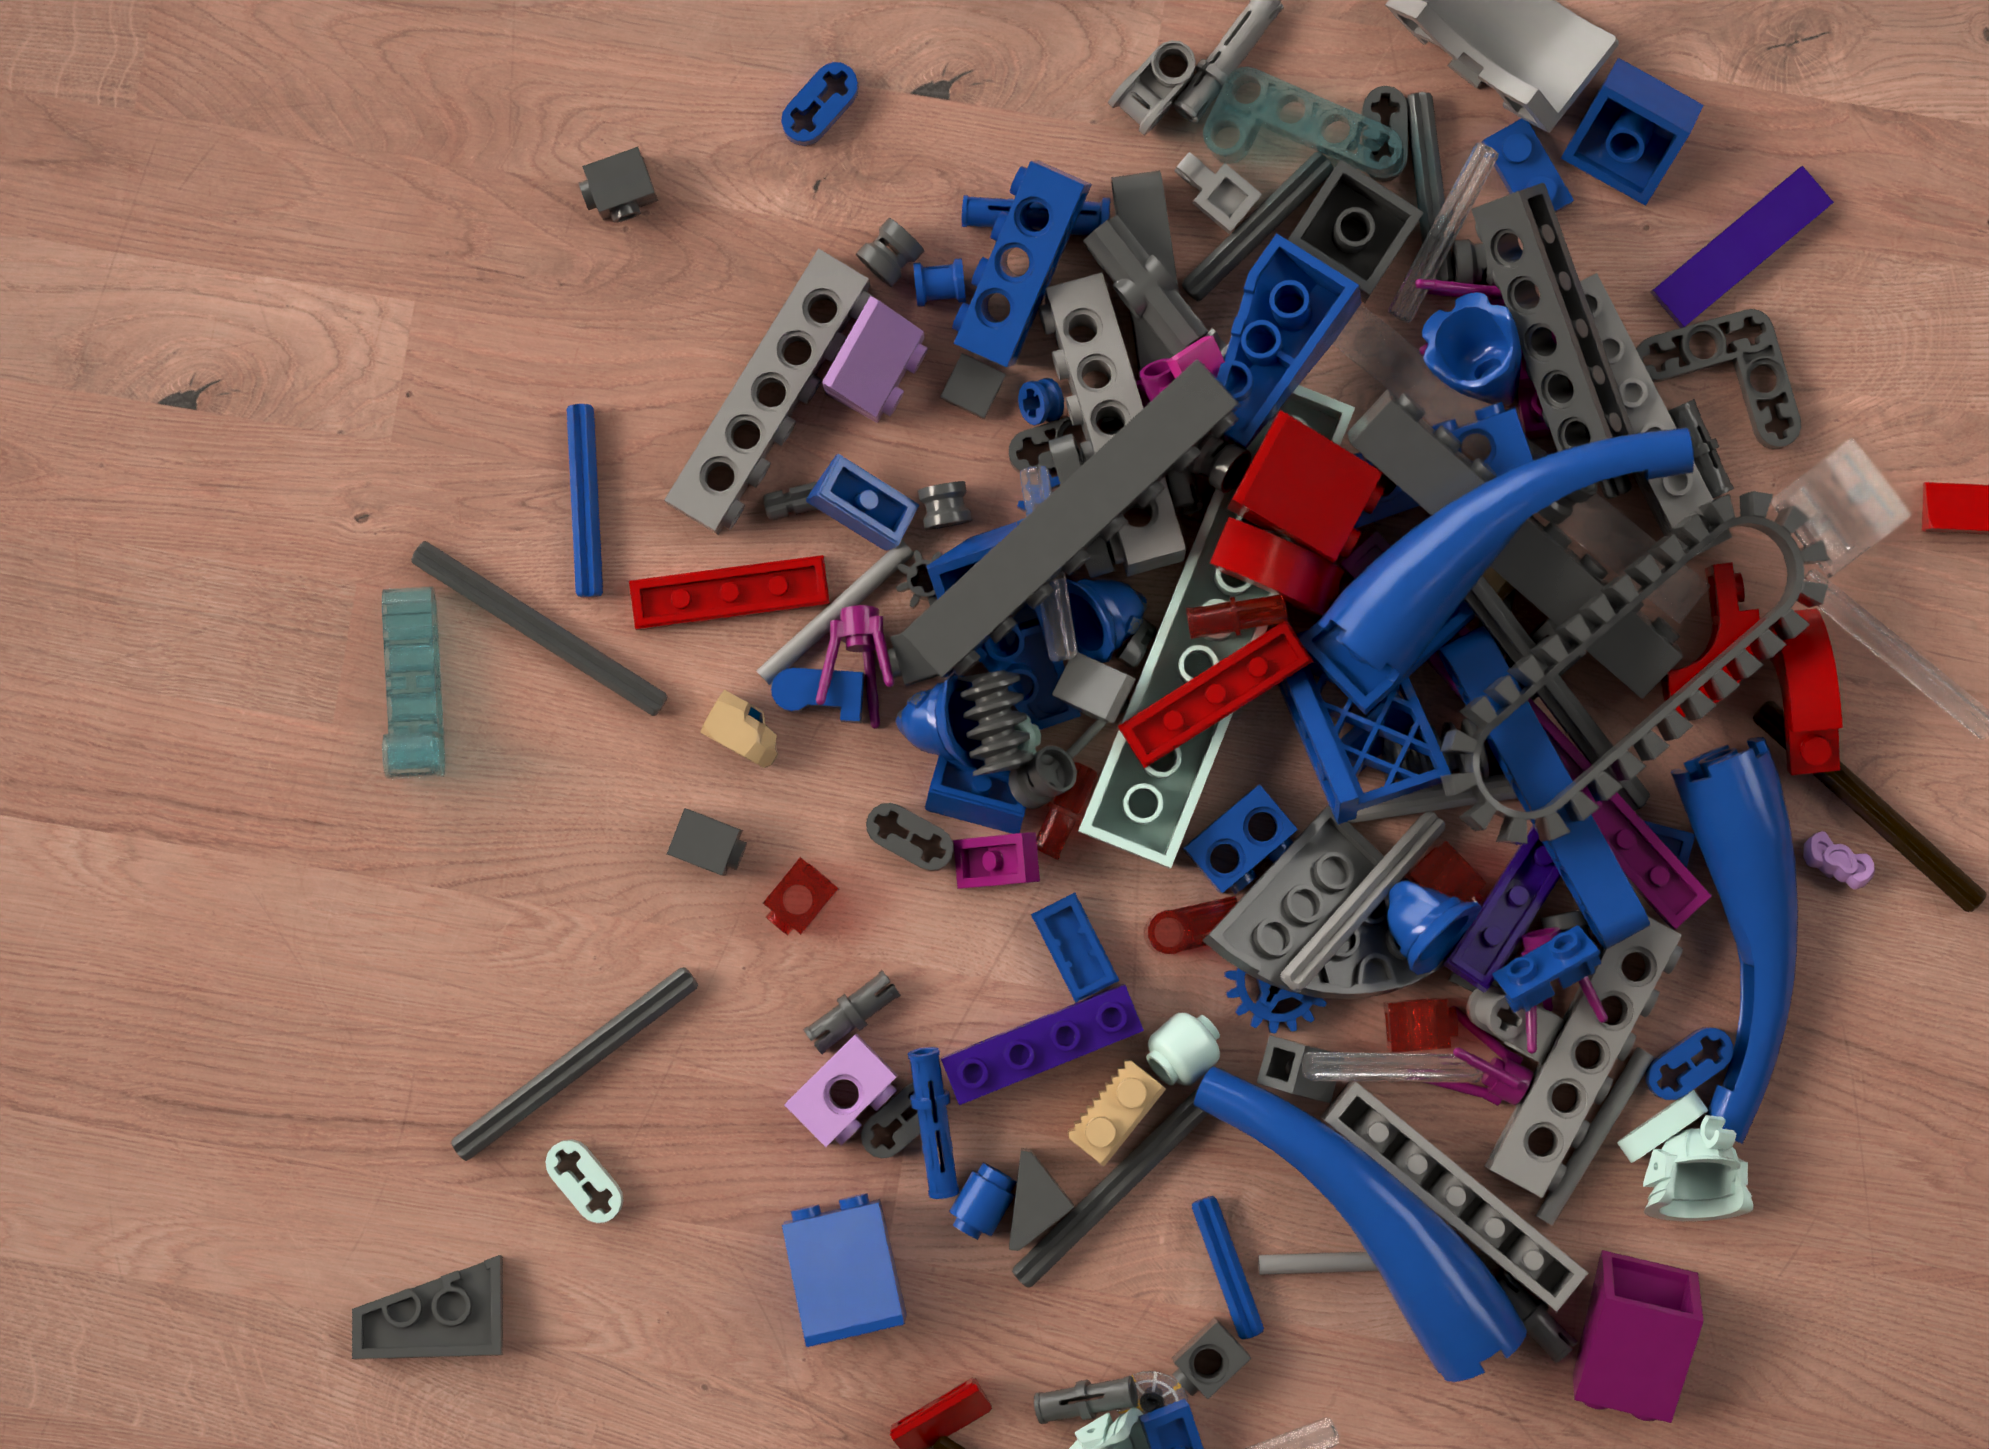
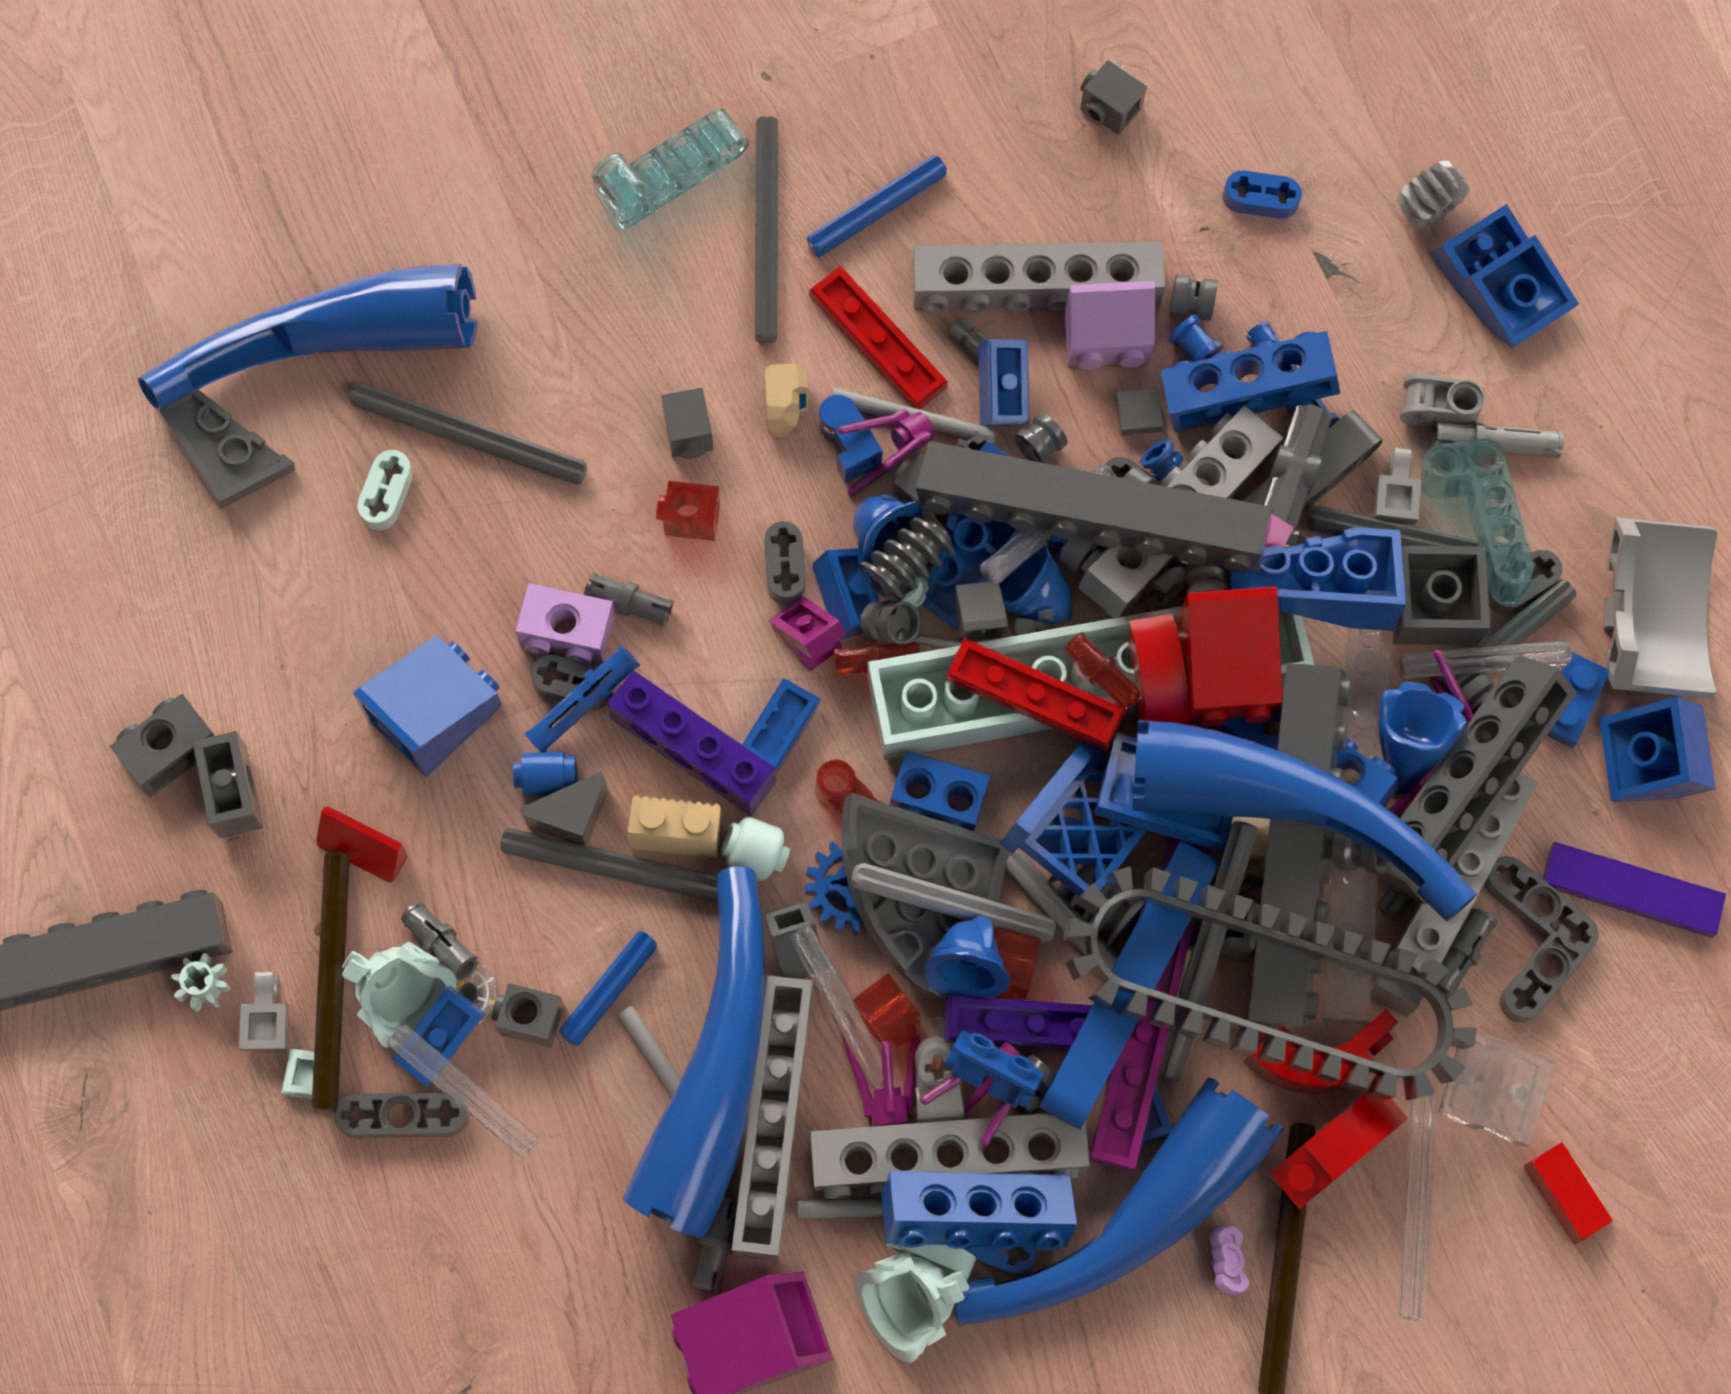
camera: 50 degrees right, 15 degrees down
(396, 1076) = (378, 313): none -> blue brick
(1683, 993) = (997, 1196): none -> blue brick

